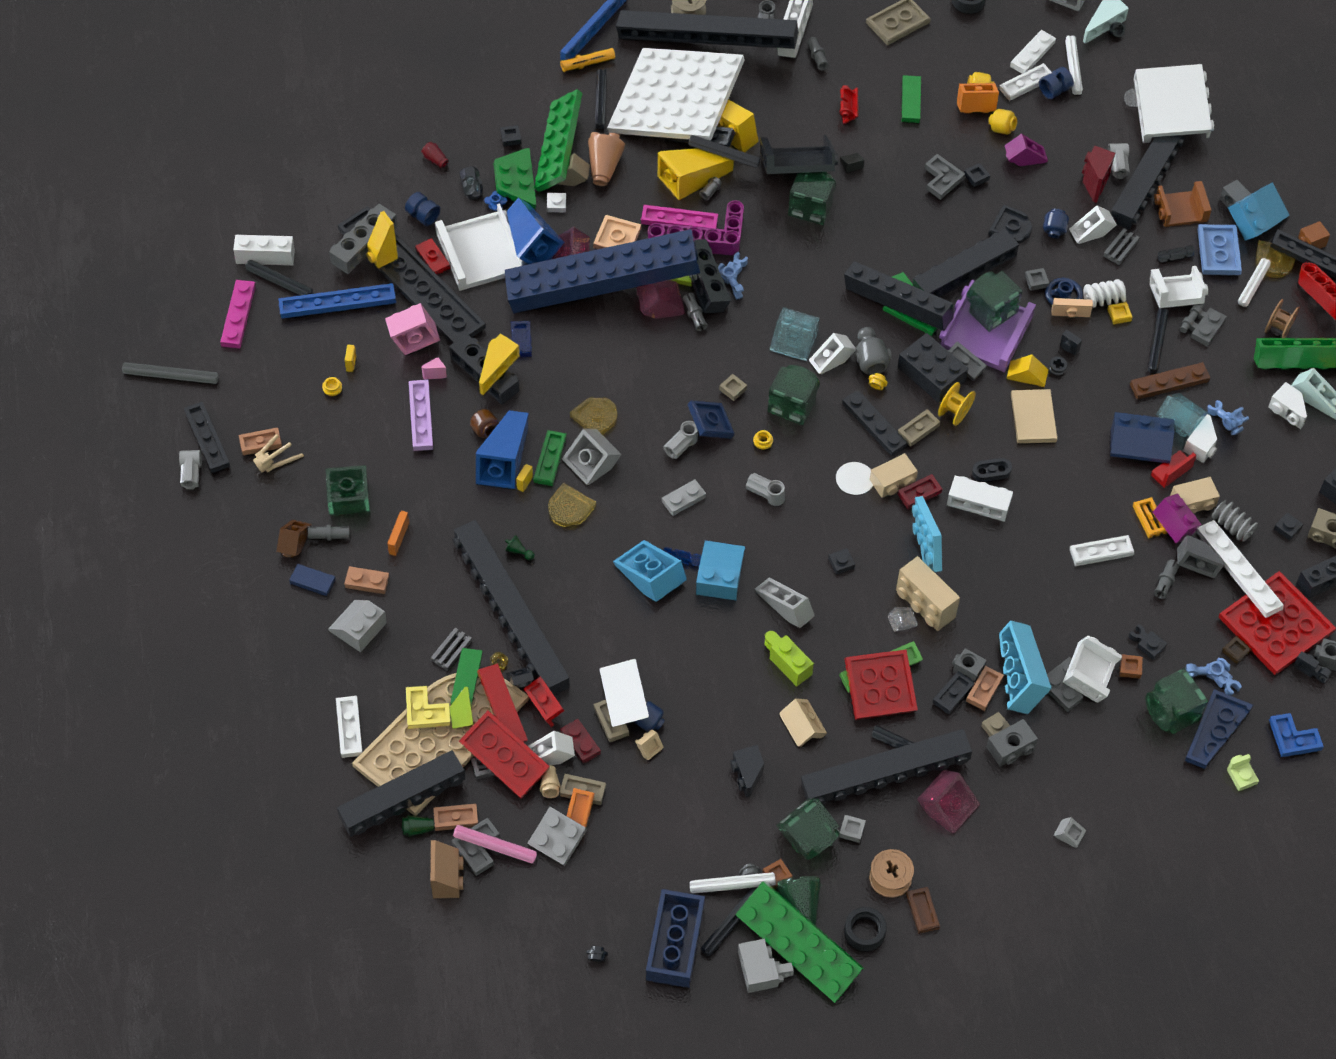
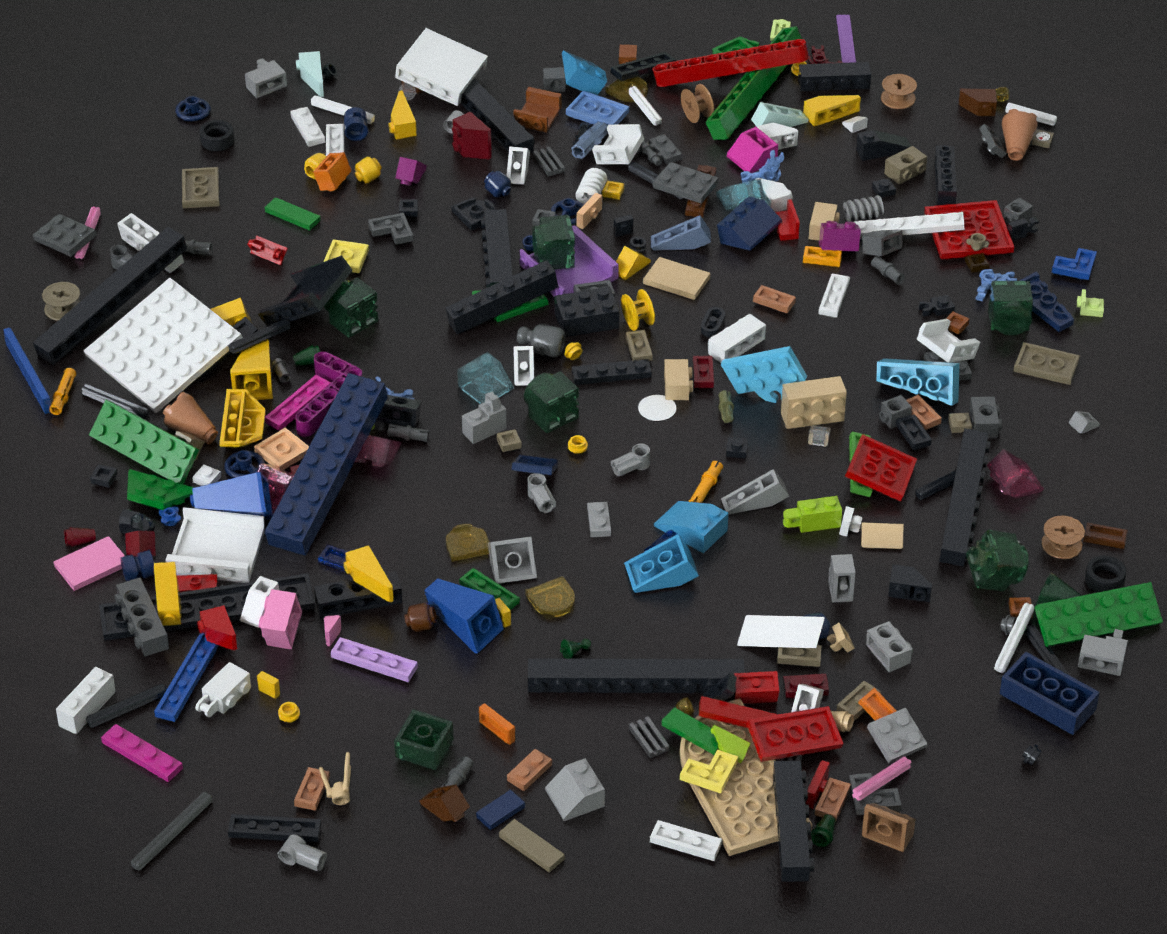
camera: 60 degrees left, 15 degrees down
(286, 619) = (532, 845): none -> dark tan tile
(326, 332) = (224, 690): none -> white brick
(382, 293) = (217, 627): none -> red slope
(412, 177) = (90, 563): none -> bright pink tile
(429, 299) = (255, 600): none -> white slope
(450, 198) = (140, 541): none -> dark red panel
(465, 797) = (818, 784): none -> red plate
(586, 215) = (243, 462): none -> dark blue piece
(621, 190) = (241, 419): none -> yellow wedge
(657, 784) = (889, 646): none -> light grey brick
(718, 710) = (841, 578): none -> light grey hinge
(736, 194) = (306, 356): none -> dark green cone
(741, 358) = (485, 420): none -> light grey hinge
(775, 557) = (708, 480): none -> light orange pin
(798, 688) = (850, 522): none -> white tile
(882, 162) = (352, 252): none -> light yellow plate
(885, 529) = (726, 406): none -> olive axle
(1057, 504) = (774, 299): none -> nougat plate
(1091, 395) = (685, 235): none -> sand blue slope
(1093, 110) = (402, 120): none -> yellow slope
(1131, 767) = (1046, 363): none -> dark tan tile
(1163, 362) = (685, 182): none -> dark grey plate
(1167, 262) = (589, 139): none -> sand blue piece
(1252, 394) = (752, 150): none -> dark pink slope
(1254, 631) = (977, 241): none -> dark tan plate

